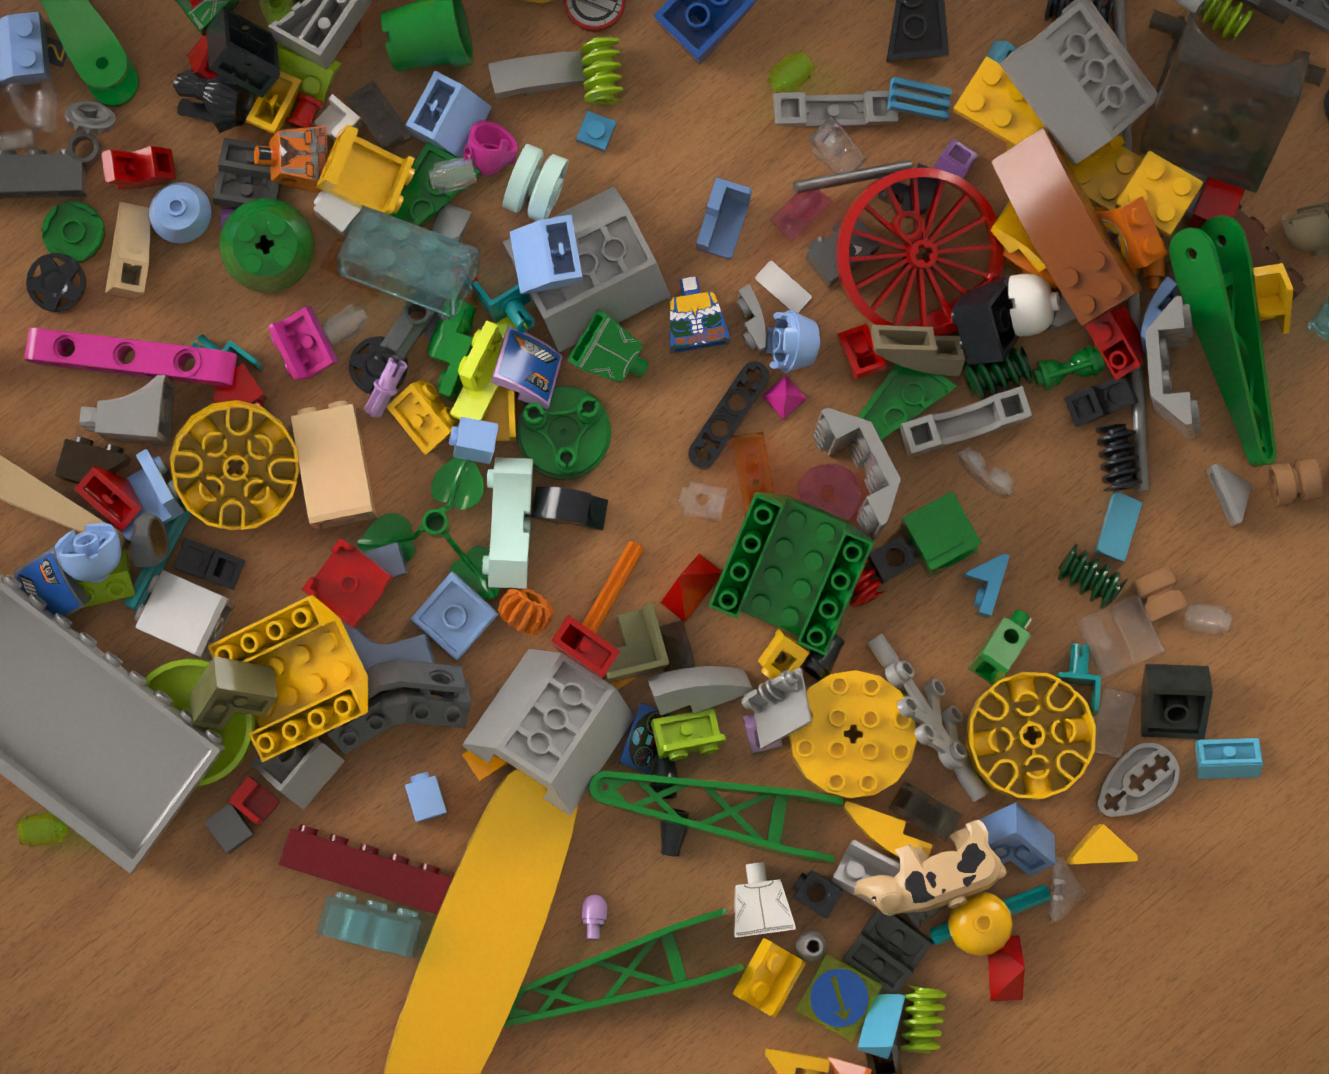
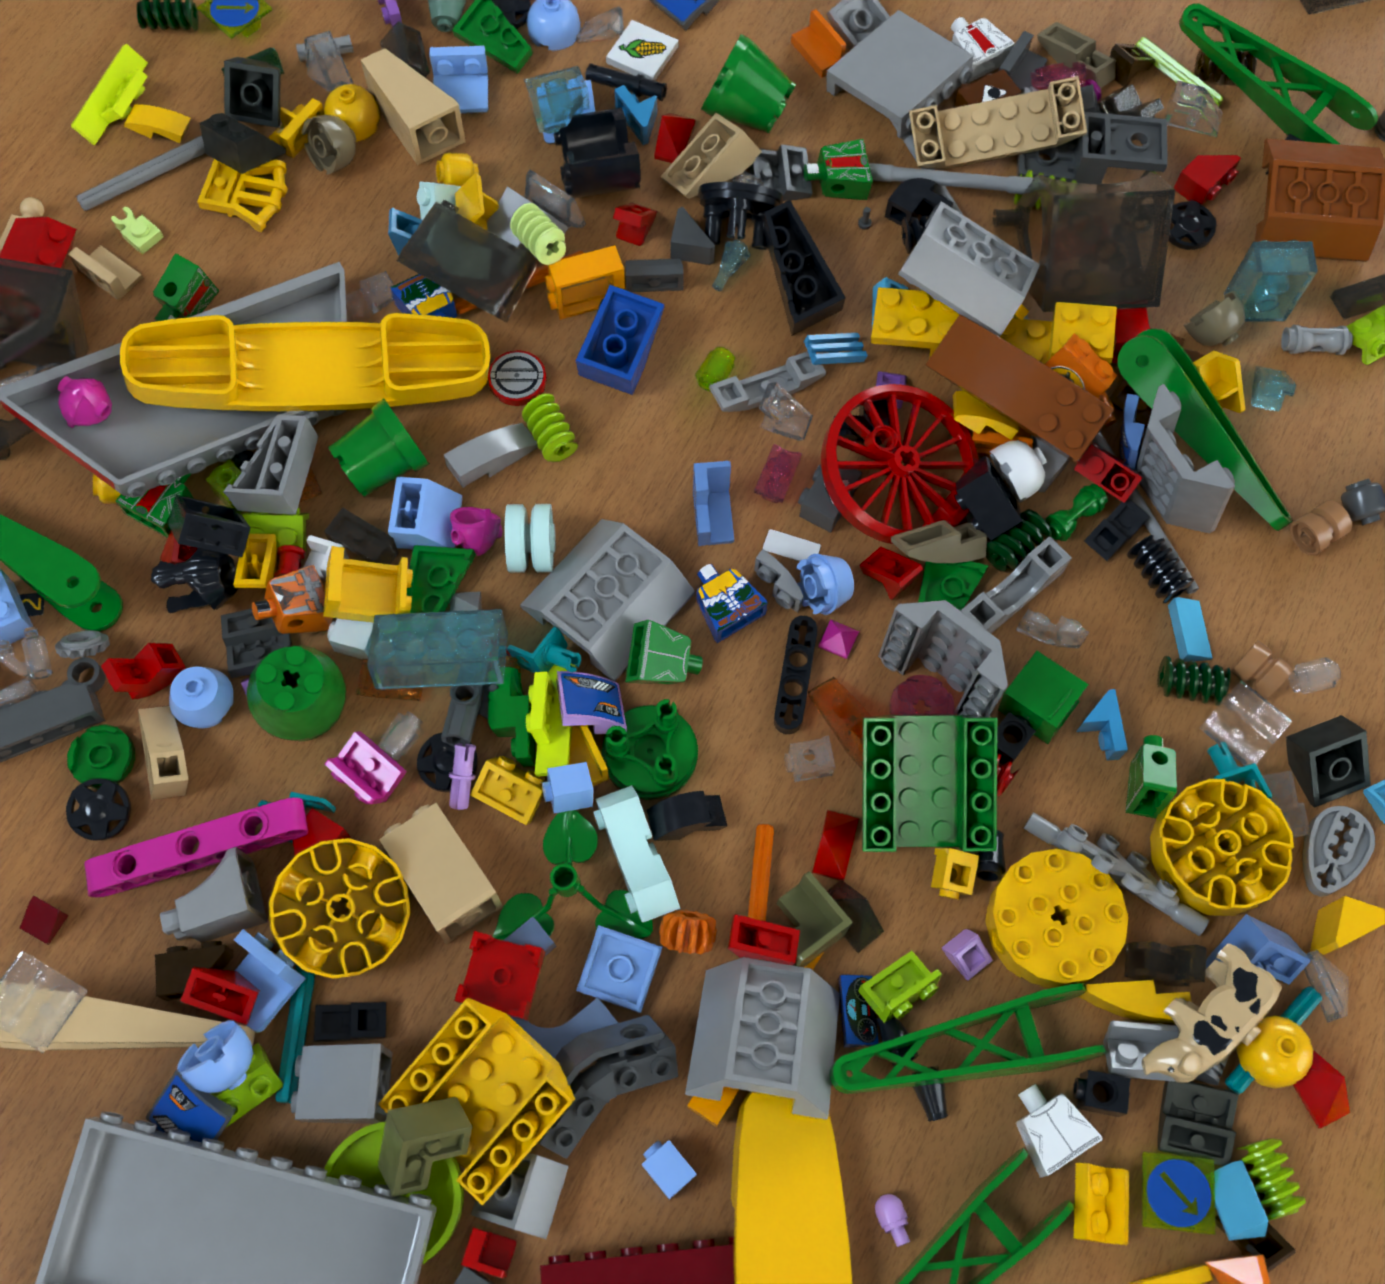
camera: 20 degrees left, 15 degrees down
(149, 541) = (277, 1021): dark grey rock -> none
(453, 175) = (450, 559): clear brick -> none
(546, 255) = (568, 587): light blue slope -> none
(596, 131) = (565, 481): dark azure plate -> none
(698, 687) = (888, 937): light grey slope -> none
(779, 706) = (979, 919): light grey hinge -> none
(801, 946) = (1116, 1150): light grey cone -> none
(849, 177) = (800, 433): flat silver bar -> none
(1231, 492) = (1268, 562): light grey slope -> none

